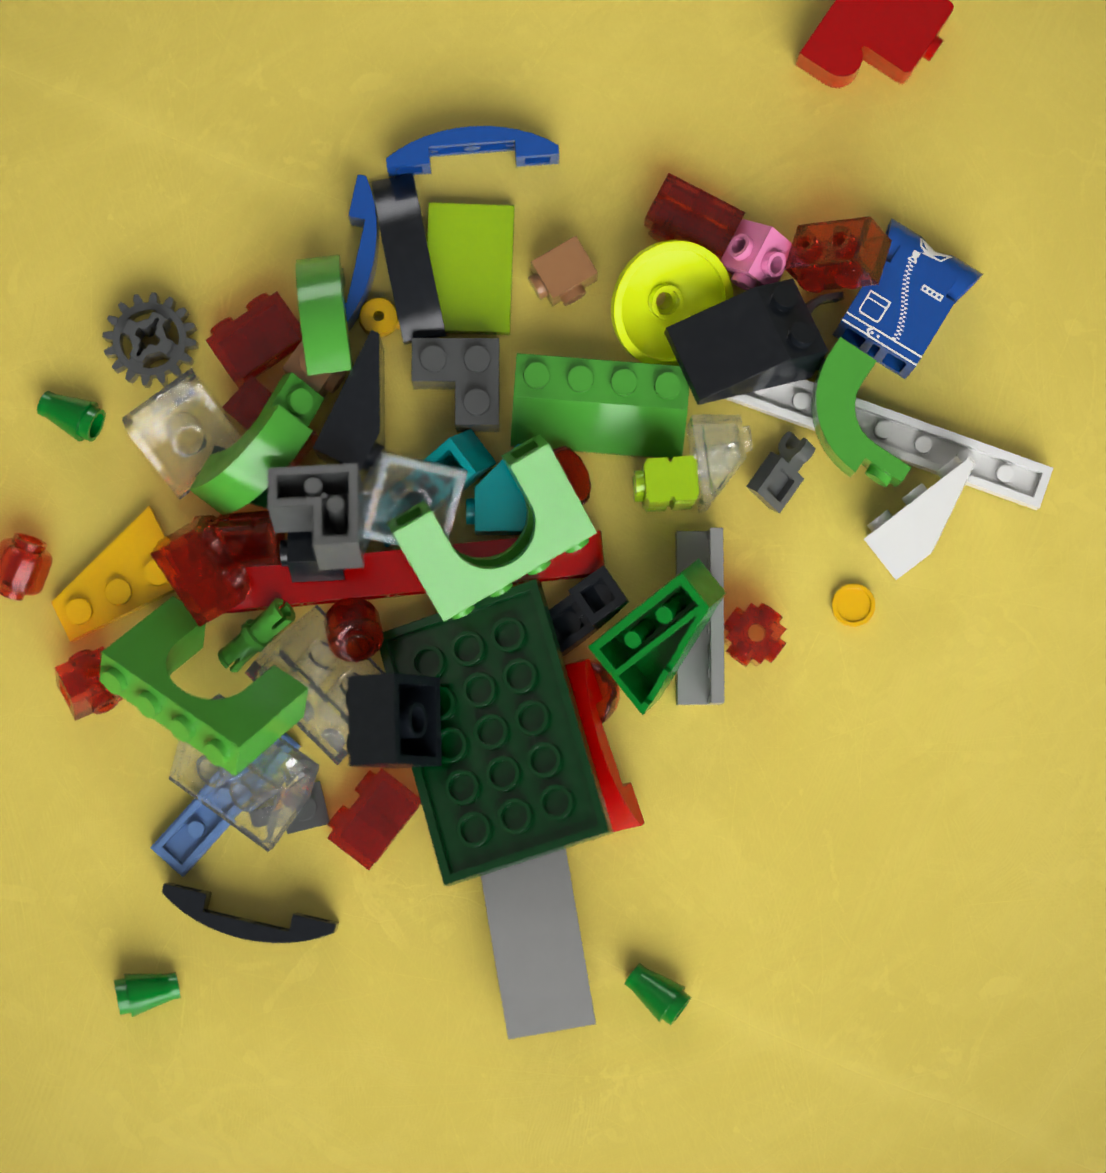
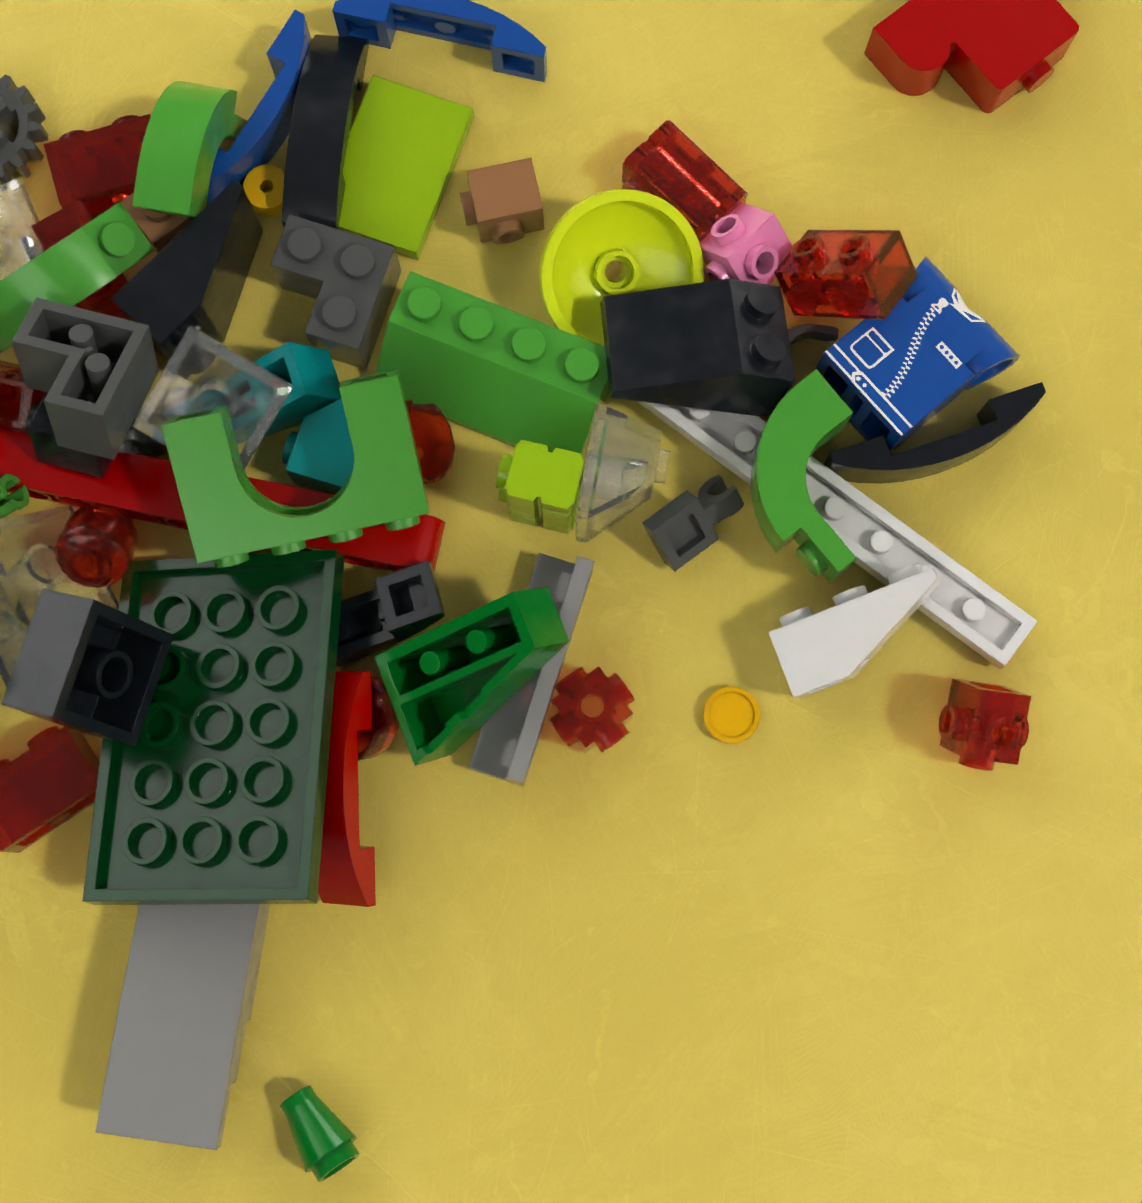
camera: 25 degrees right, 5 degrees down
(981, 326) = (873, 463): none -> black slope
(1037, 555) = (984, 723): none -> clear red brick

